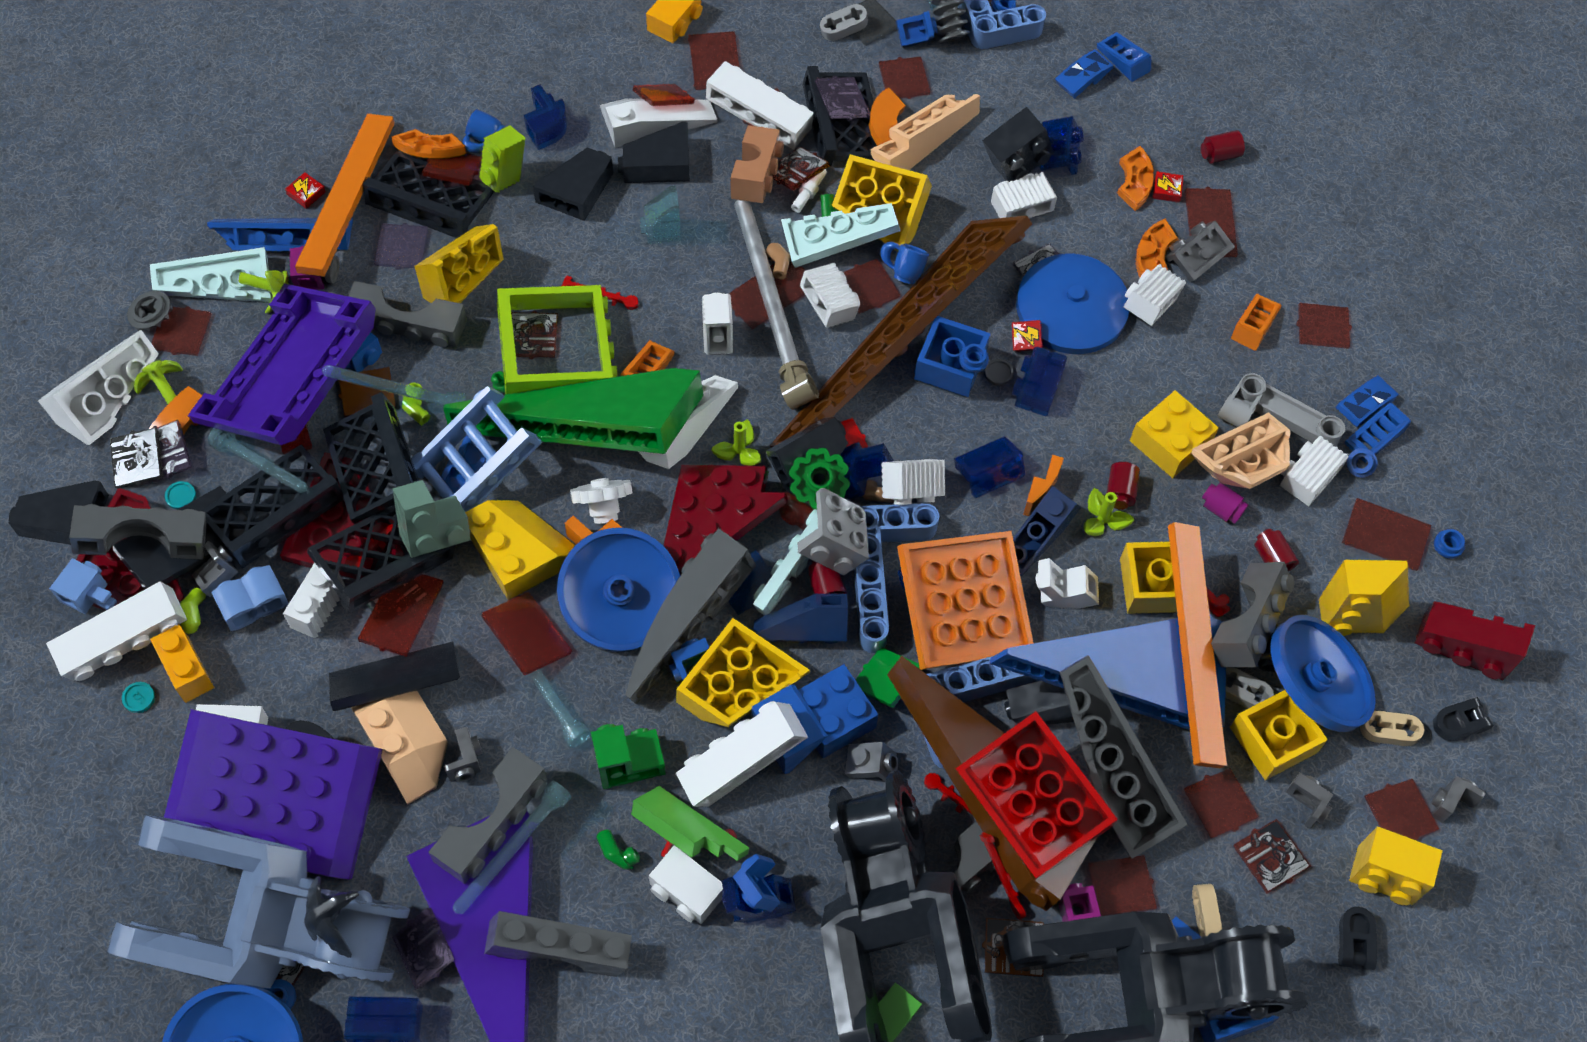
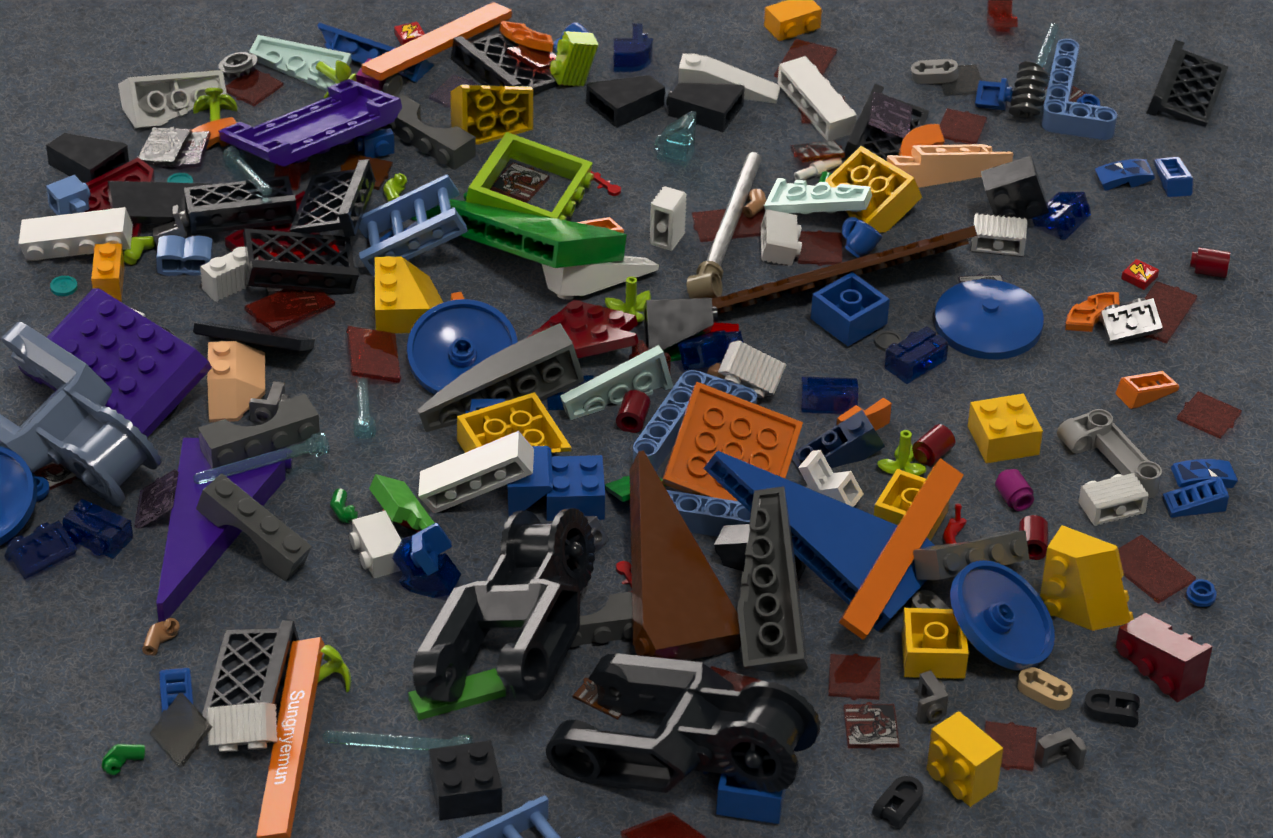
camera: 30 degrees right, 20 degrees down
(99, 528) = (106, 162): dark grey arch -> none
(322, 913) = (92, 414): black animal -> none
(392, 386) = (374, 158): clear light blue piece -> none
(428, 523) = (341, 249): sand green brick -> none
(602, 497) = (494, 289): white plant -> none
(628, 757) = (386, 451): green brick -> none
(663, 94) = (740, 65): clear red piece -> none
(759, 161) = (792, 129): nougat arch -> none
(810, 619) = (605, 426): dark blue slope -> none
(818, 462) = (671, 331): green plant -> none
(840, 535) = (655, 369): light grey bracket -> none
(974, 351) = (859, 305): blue plate -> none
(1005, 878) = (629, 631): red piece -> none
(1026, 335) = (929, 317): tile -> none
(1036, 795) = (685, 576): red slope -> none
(1138, 176) = (1120, 256): orange tile -> none
(1153, 294) = (1062, 333): white brick -> none
(1247, 453) = (1052, 453): light nougat wedge -> none
(1358, 454) = (1163, 510): blue plate -> none

